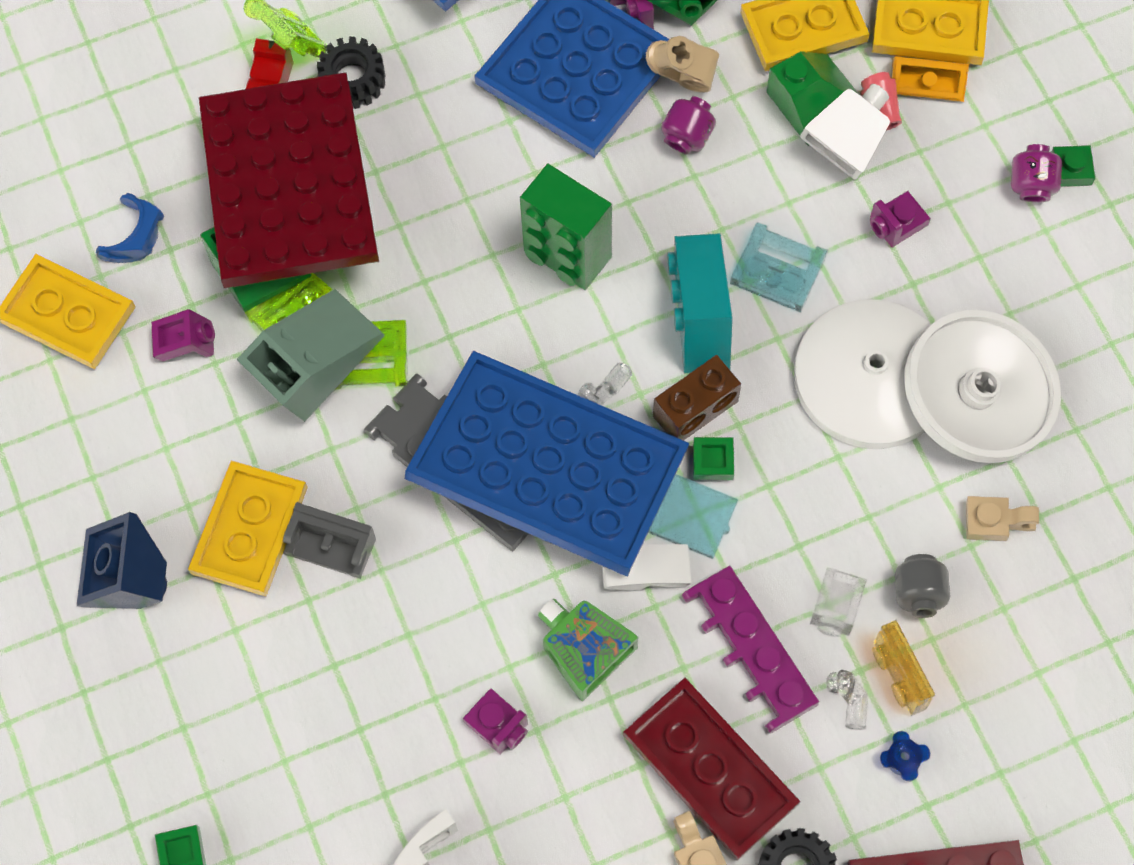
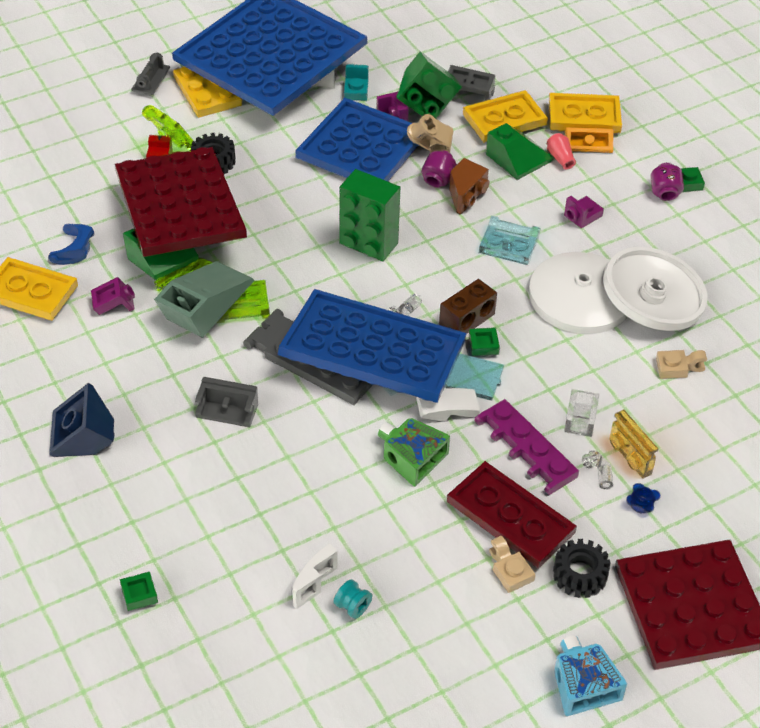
camera: 10 degrees left, 20 degrees down
(247, 528) = (168, 400): yellow plate -> none
(497, 722) = (357, 499): magenta bracket -> none
(702, 299) = (462, 252): teal wedge -> none
(726, 156) = (467, 183): none -> dark orange slope
(849, 129) = (542, 163): white torso -> none
(922, 585) = (637, 397): dark grey head -> none

